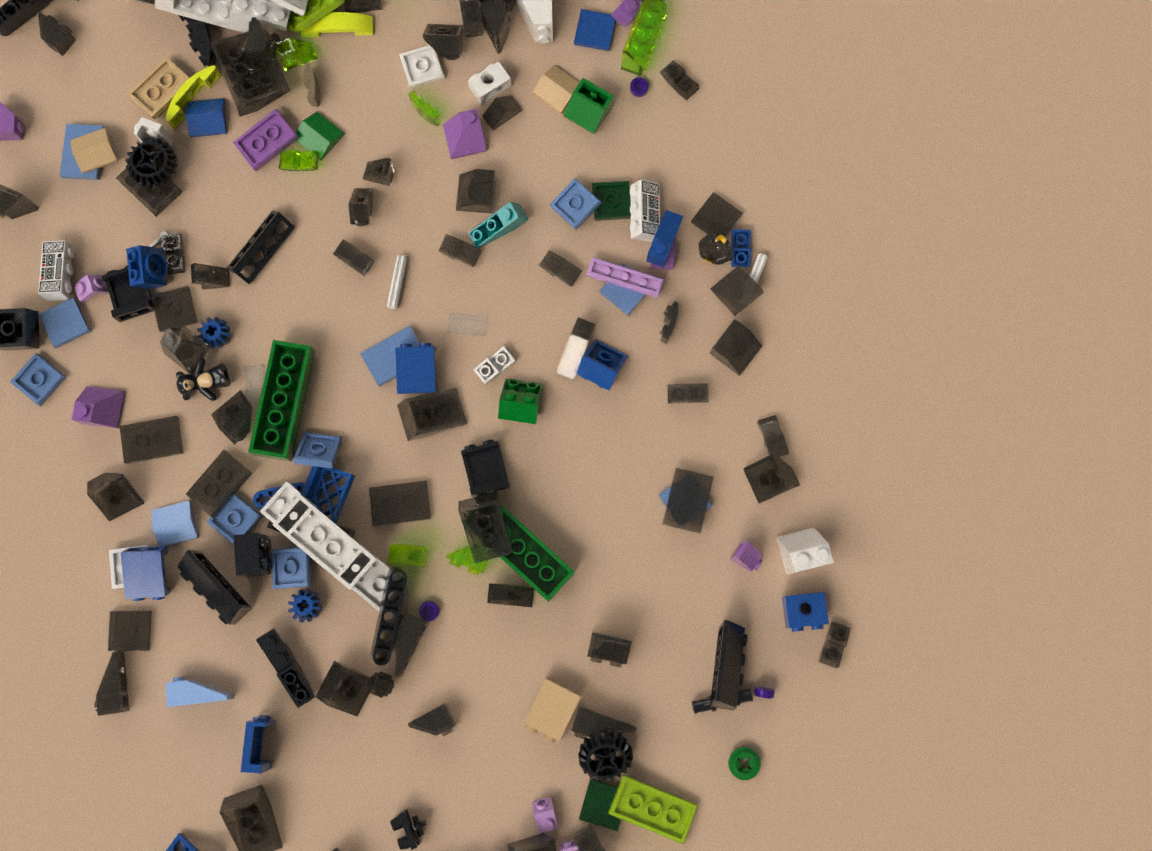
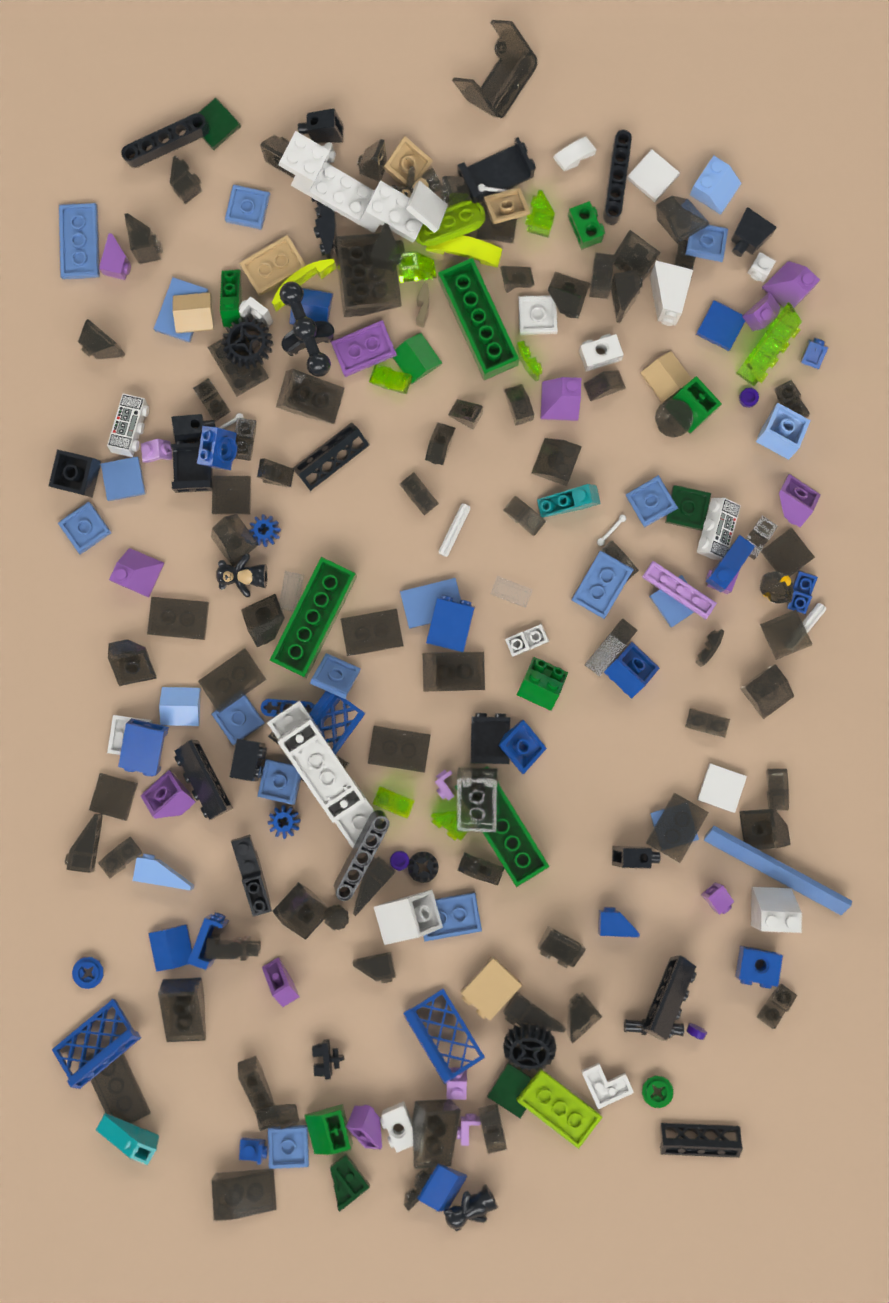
camera: 20 degrees right, 5 degrees up
(27, 97) = (142, 241): none -> clear smoke slope
(113, 255) = (184, 427): none -> black torso
(122, 42) = (247, 207): none -> medium blue tile
(124, 125) = (230, 297): none -> green slope
(132, 226) = (211, 399): none -> clear smoke slope
(137, 815) = (78, 972): none -> blue gear
(149, 688) = (120, 857): none -> clear smoke slope
(183, 615) = (167, 797): none -> medium lavender slope
(203, 136) = (305, 332): none -> black connector
(223, 764) = (170, 947): none -> blue slope
(225, 196) = (310, 396): none -> clear smoke slope
(294, 742) = (232, 948): none -> clear smoke hips
(342, 766) = (280, 982): none -> medium lavender slope
(343, 400) = (372, 632): none -> clear smoke tile
(366, 83) = (478, 319): none -> green brick
(391, 36) = (516, 277): none -> clear smoke slope
(427, 151) = (519, 404): none -> clear smoke slope
(451, 662) = (408, 917): none -> white slope
(453, 529) = (444, 790): none -> lavender bracket
(457, 619) = (432, 866): none -> black gear
(493, 651) = (458, 916): none -> medium blue tile
(505, 783) = (427, 1041): none -> blue fence
(517, 465) = (522, 746): none -> blue slope
(539, 255) = (622, 518): none -> white hinge
(551, 292) = (602, 584): none -> medium blue tile
(574, 122) = (674, 418): none -> clear smoke tile
(647, 709) = (581, 1016): none -> clear smoke slope
(649, 540) = (634, 857): none -> black torso
(655, 610) = (615, 924): none -> blue slope
(679, 107) = (783, 431): none -> light blue slope
(686, 207) = (760, 535): none -> clear smoke slope
(687, 30) = (814, 353): none -> bracket
(692, 778) = (605, 1091): none -> white plate
(710, 166) = (797, 500): none -> medium lavender slope
(720, 451) = (721, 788): none -> white tile
(795, 513) = (778, 870): none -> medium blue tile
(800, 806) = (701, 1146): none -> black fence

